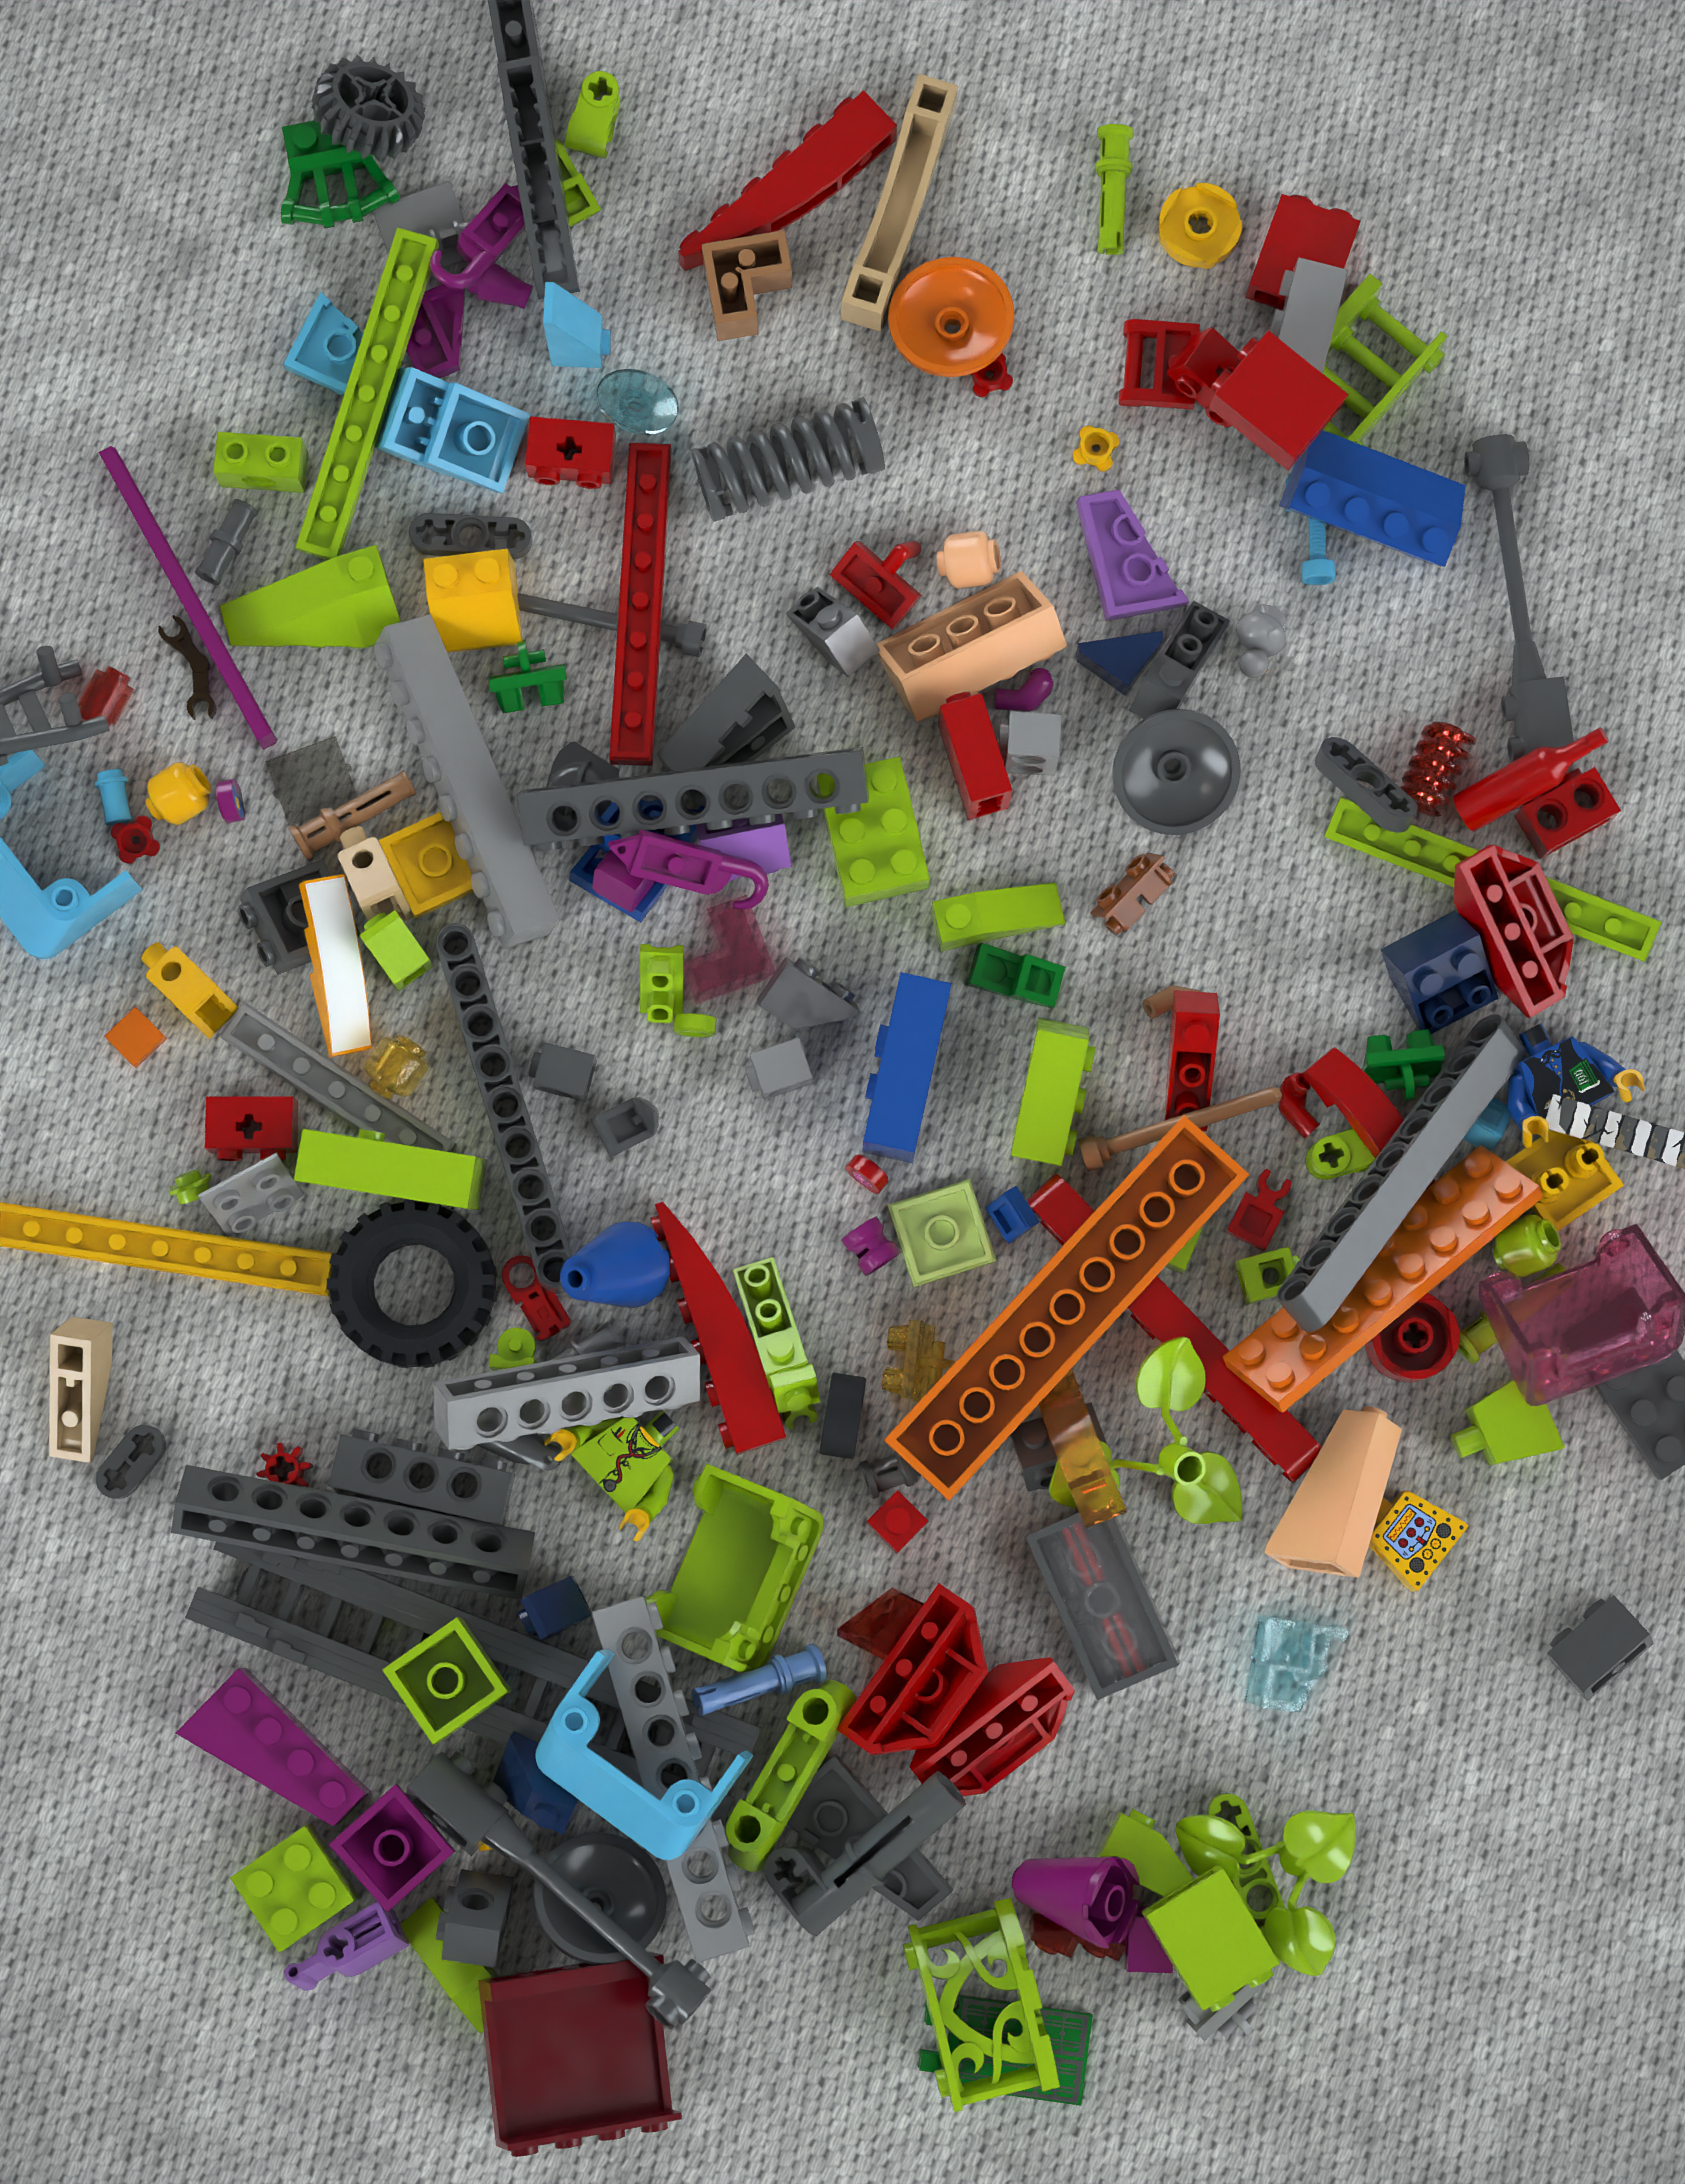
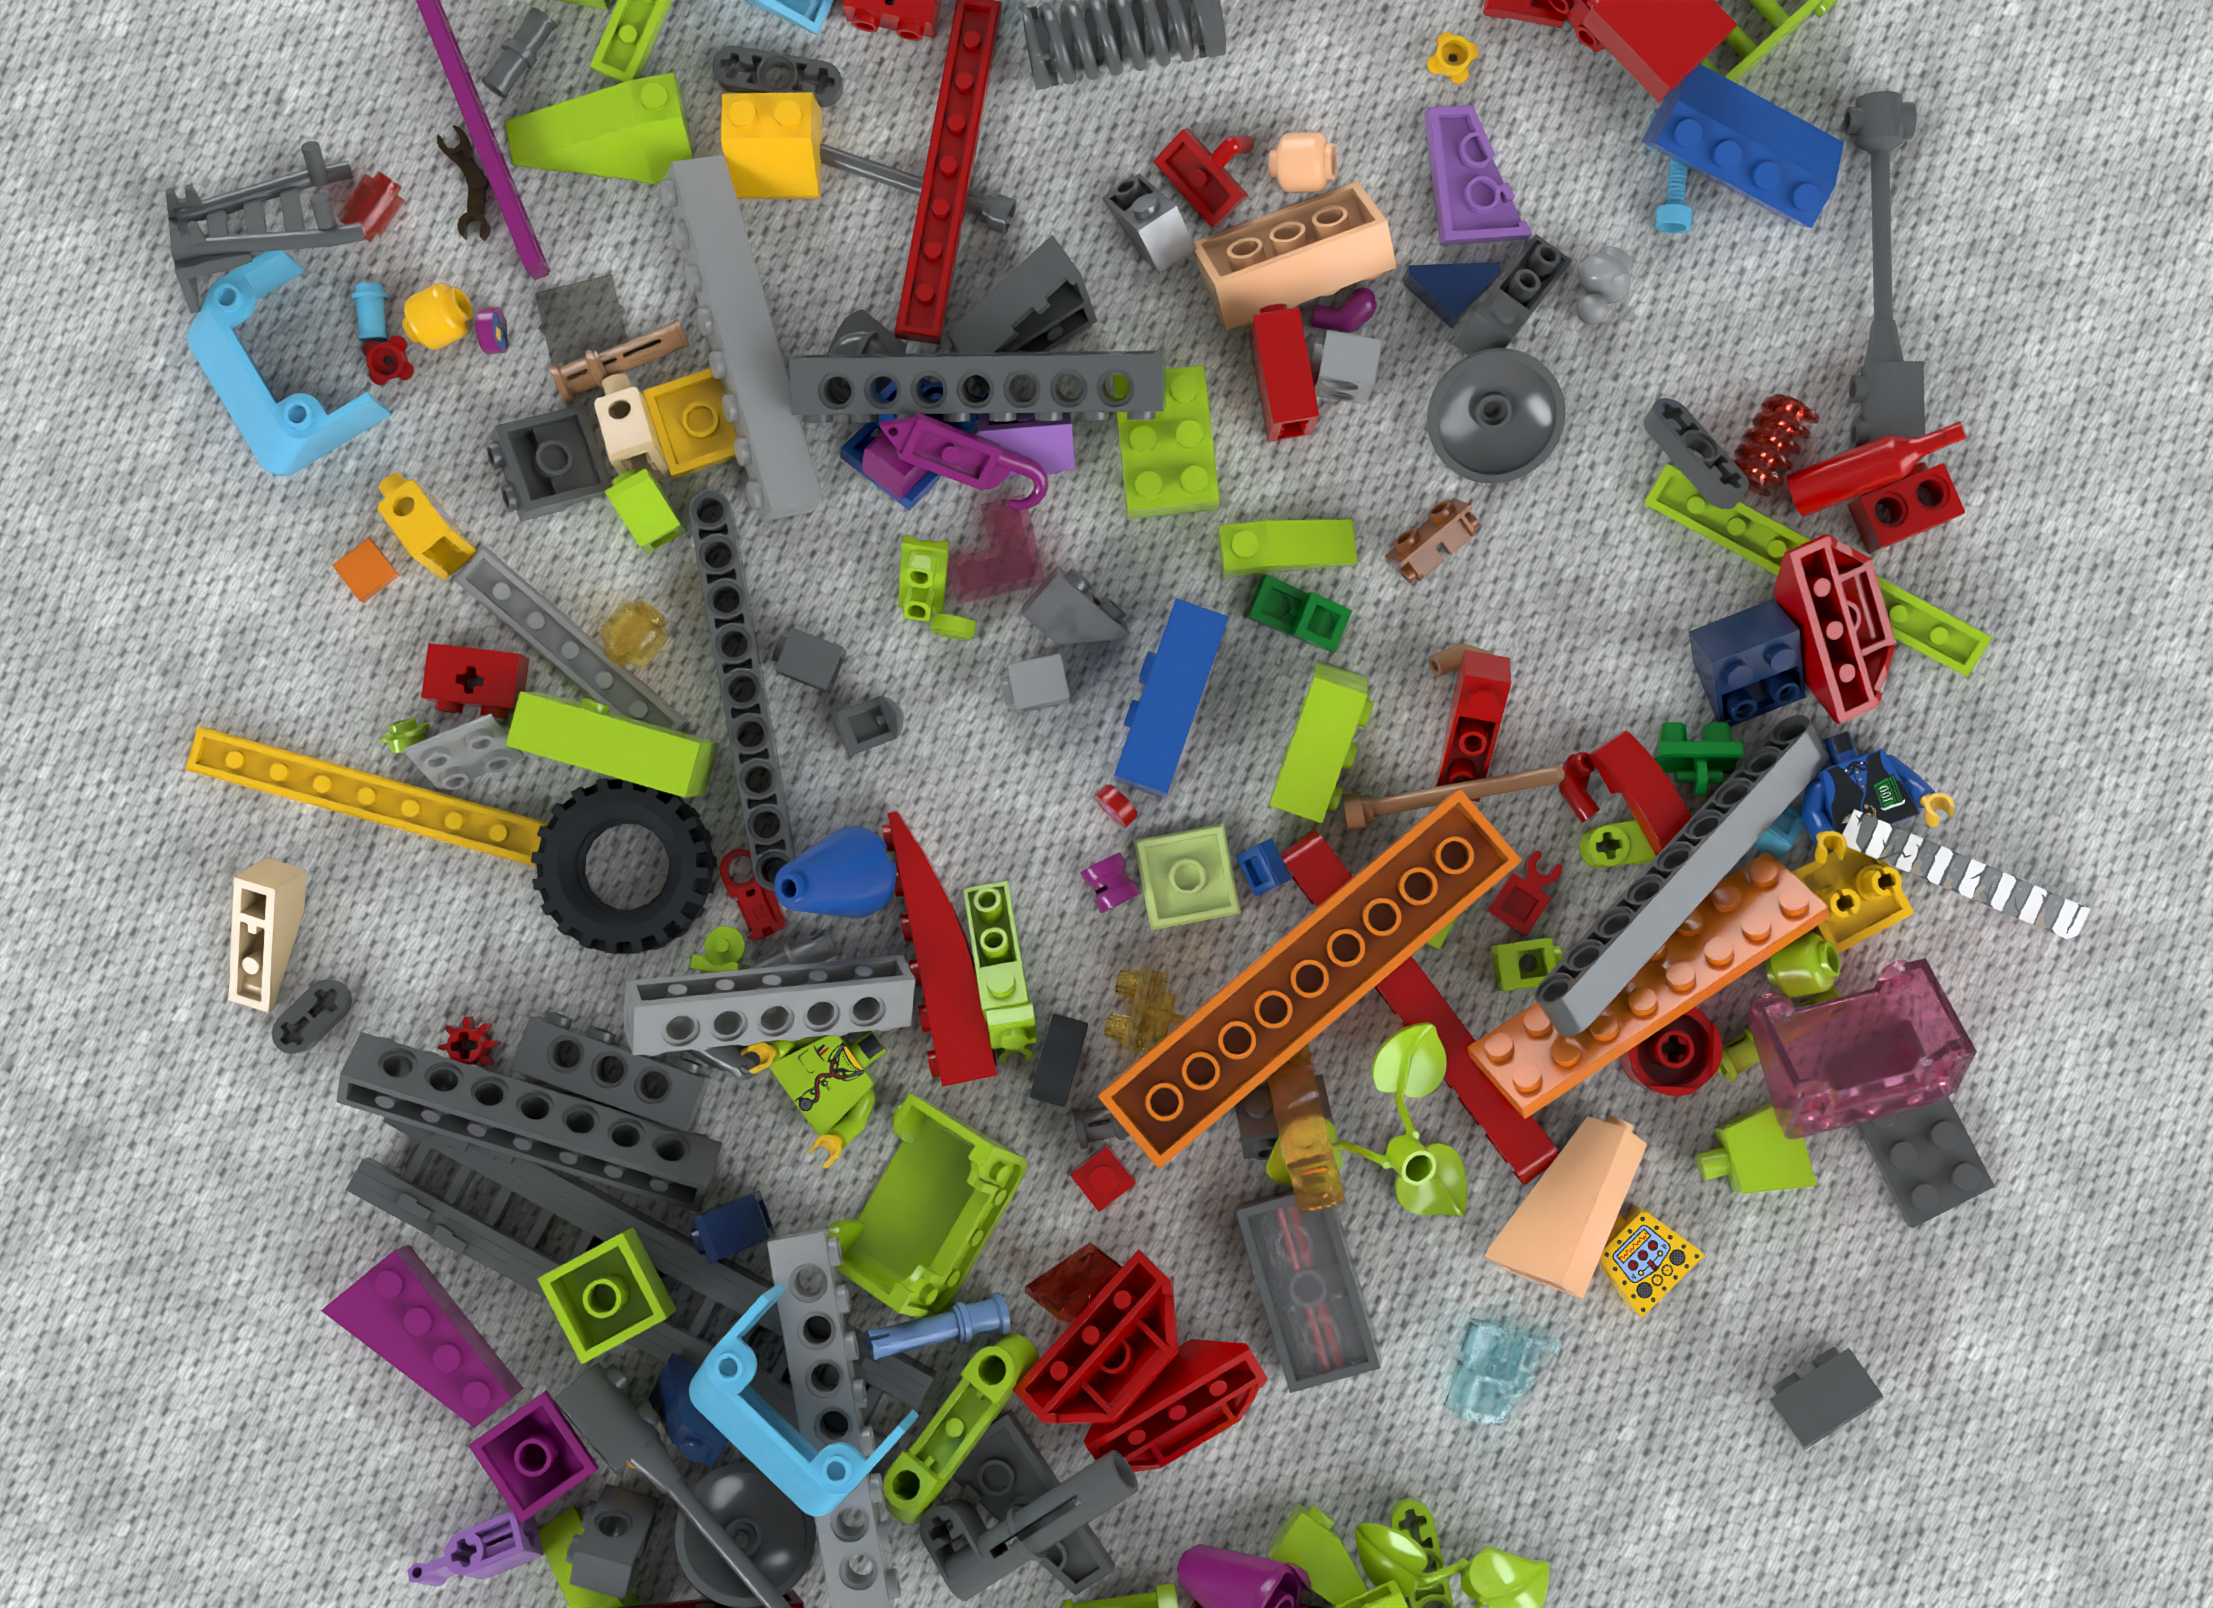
camera: 10 degrees right, 5 degrees up
(294, 1887) = (430, 1483): lime brick -> none
(337, 965) = (581, 519): white slope -> none
(547, 678) = (799, 242): green hips -> none

